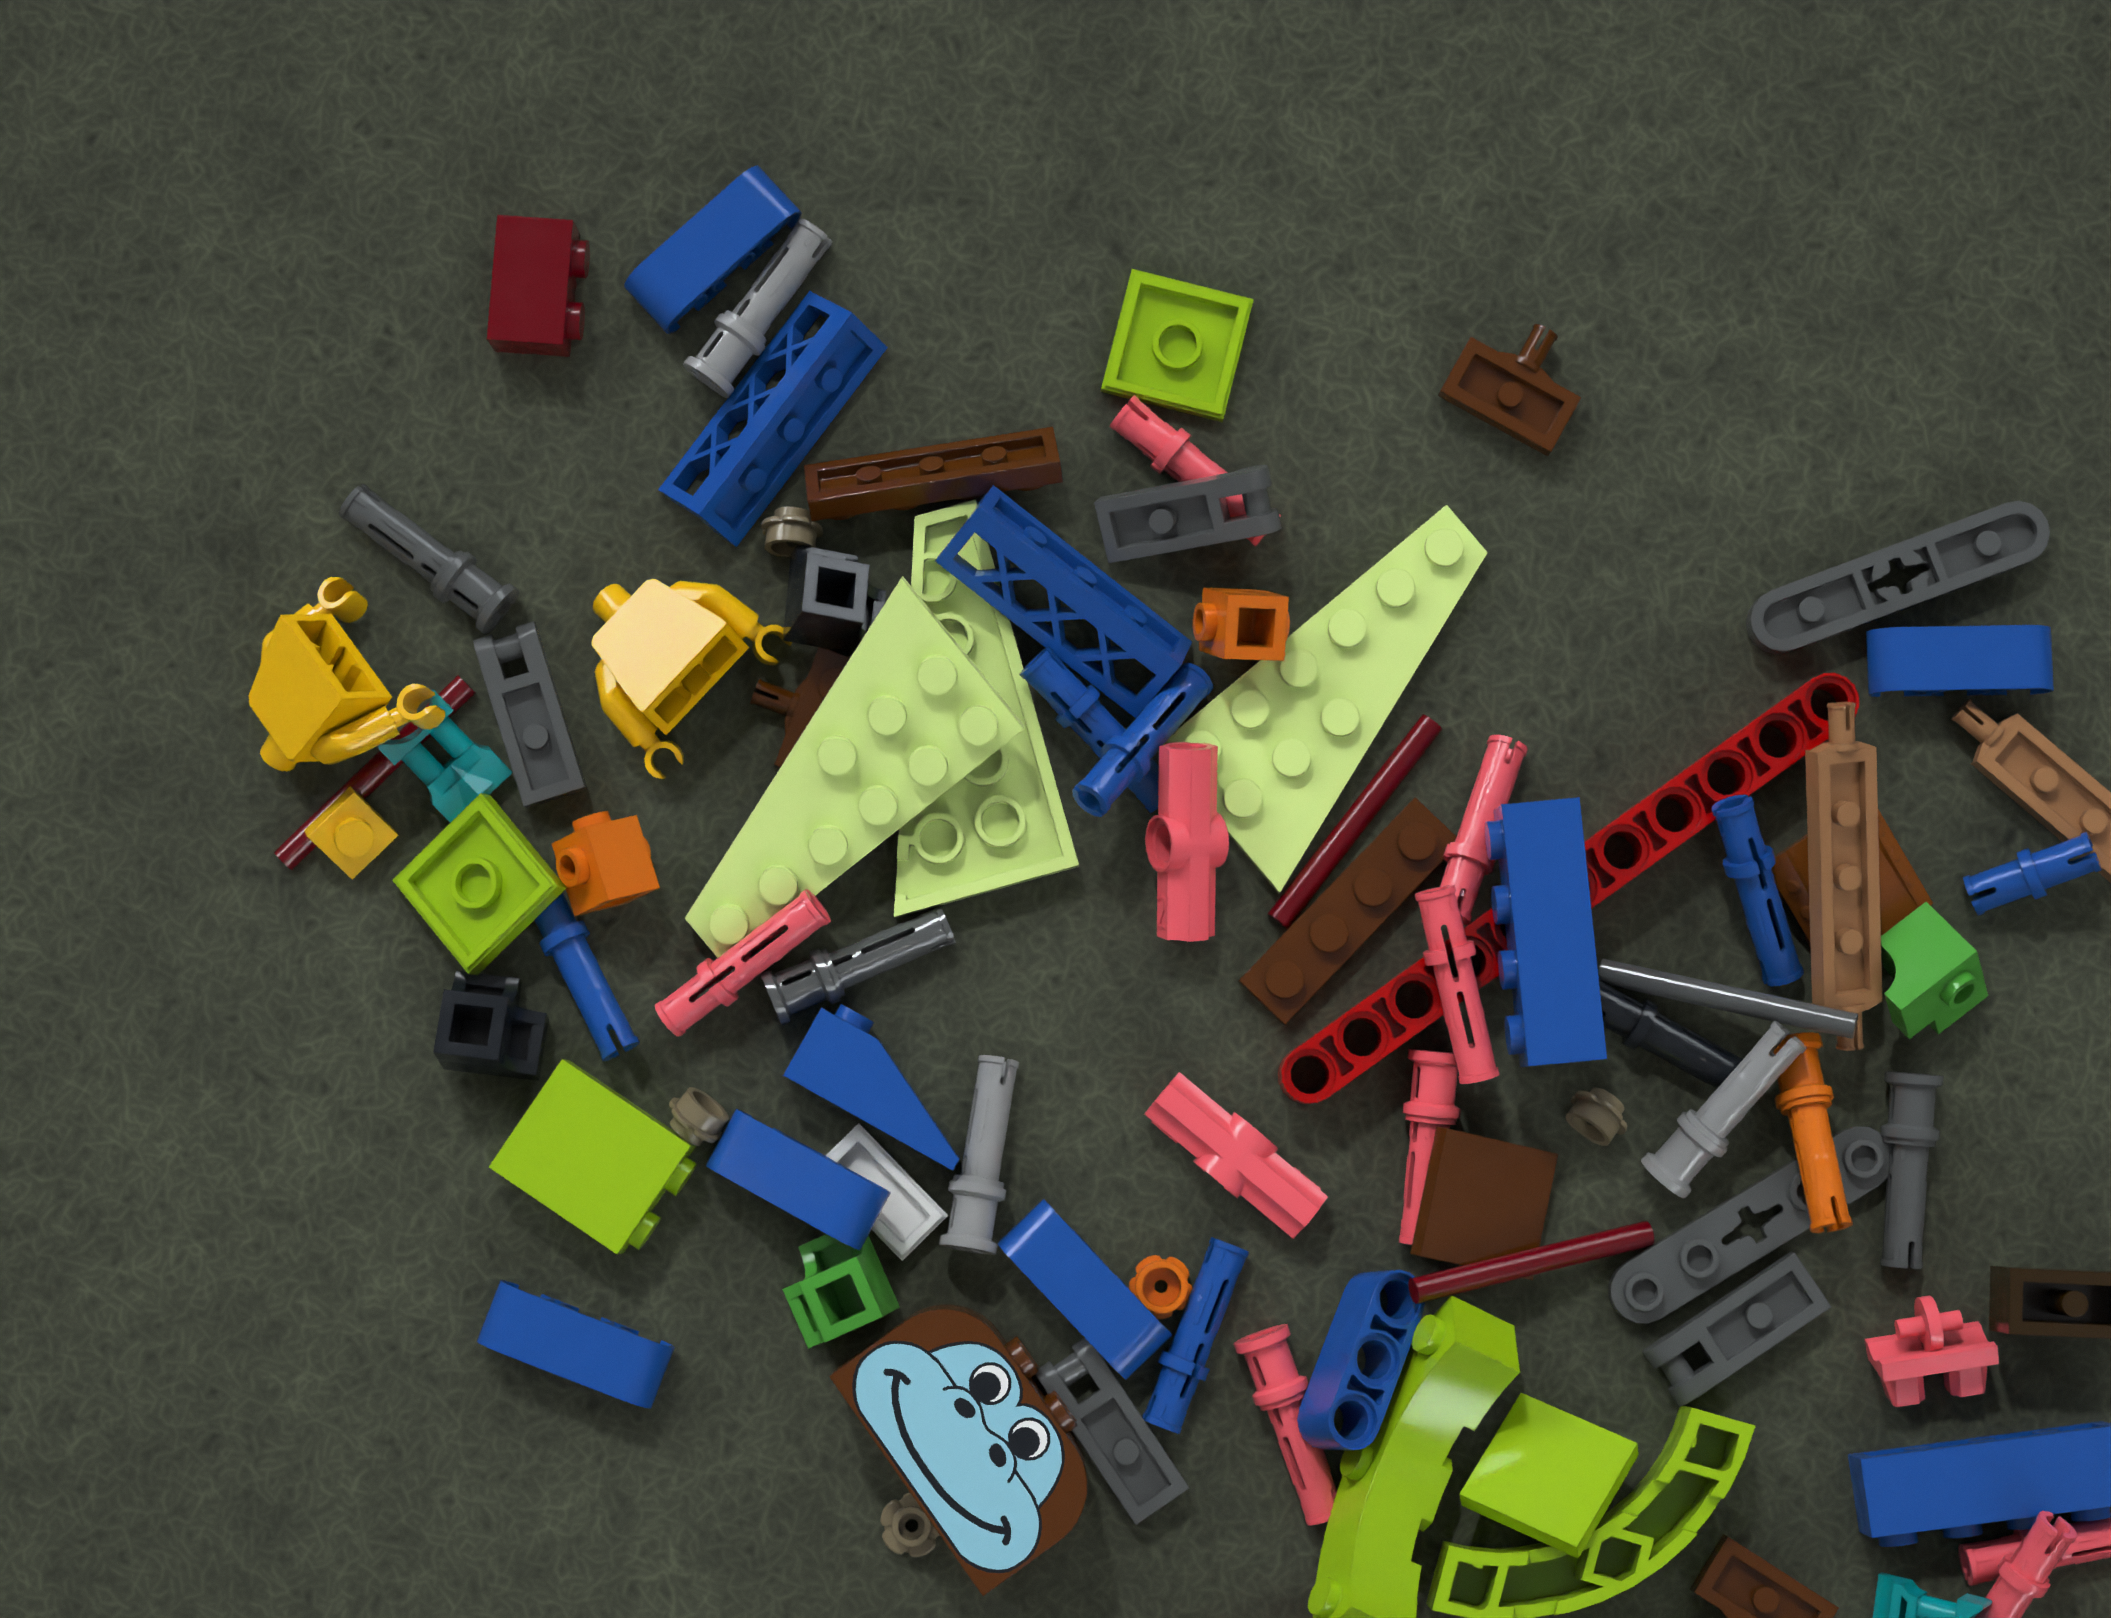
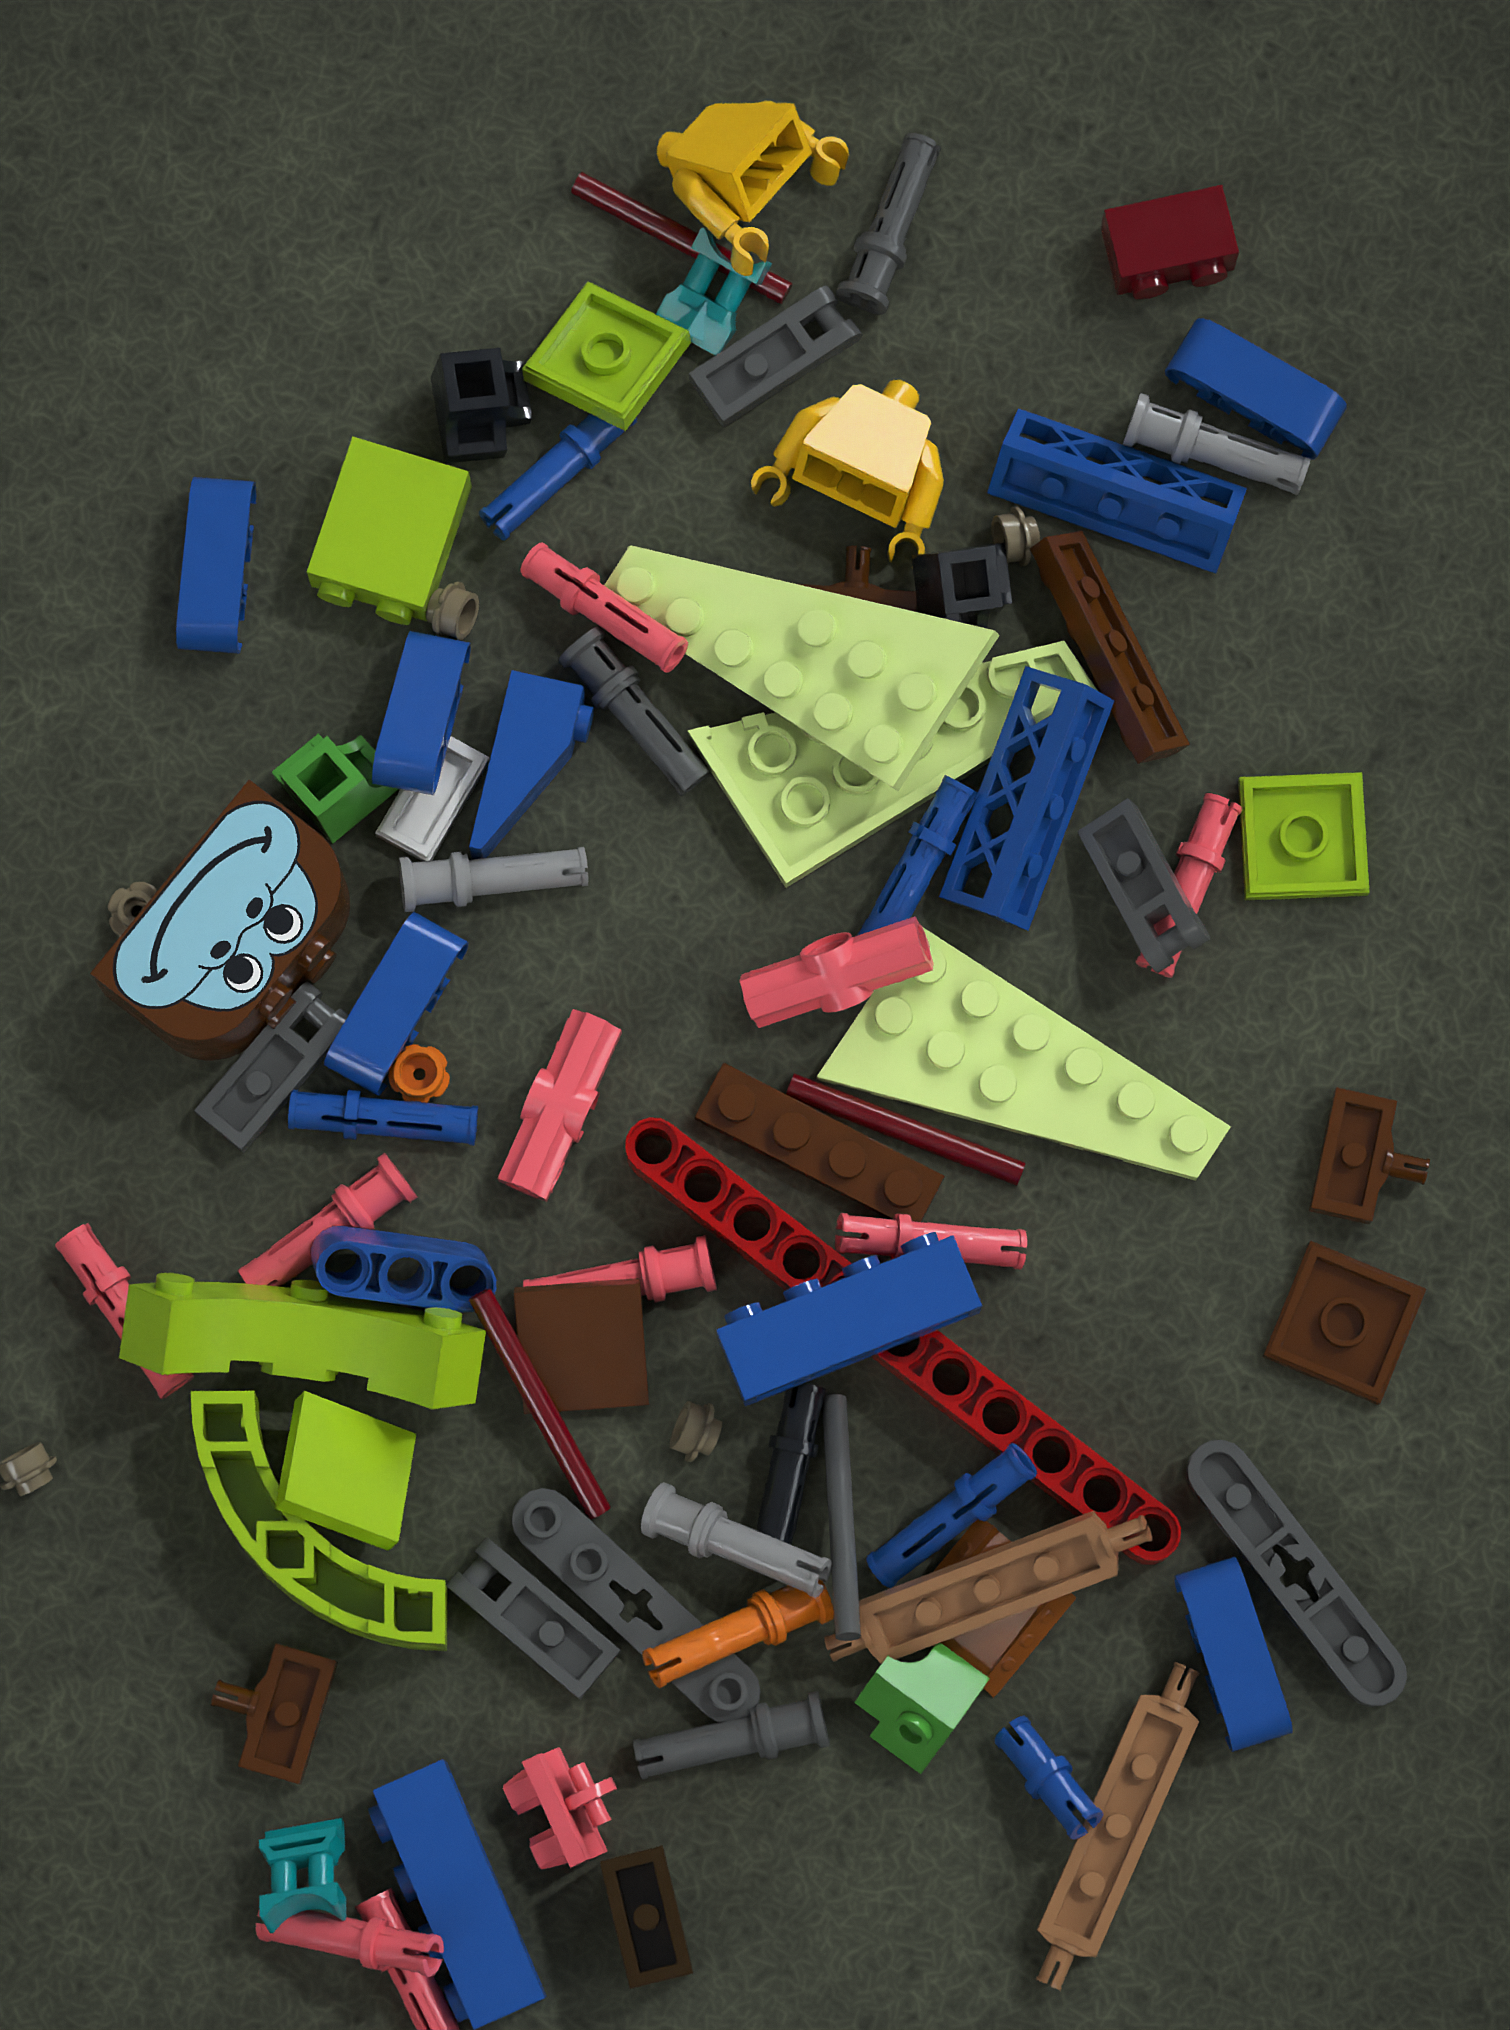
camera: 75 degrees right, 5 degrees down
(351, 833) = (619, 232): yellow plate -> none
(604, 863) = (658, 458): orange brick -> none
(1103, 783) = (861, 874): blue pin -> none
(1242, 624) = (1055, 964): orange brick -> none
(1439, 908) = (776, 1251): coral pin -> none
(1666, 456) = (1344, 1322): none -> reddish brown tile

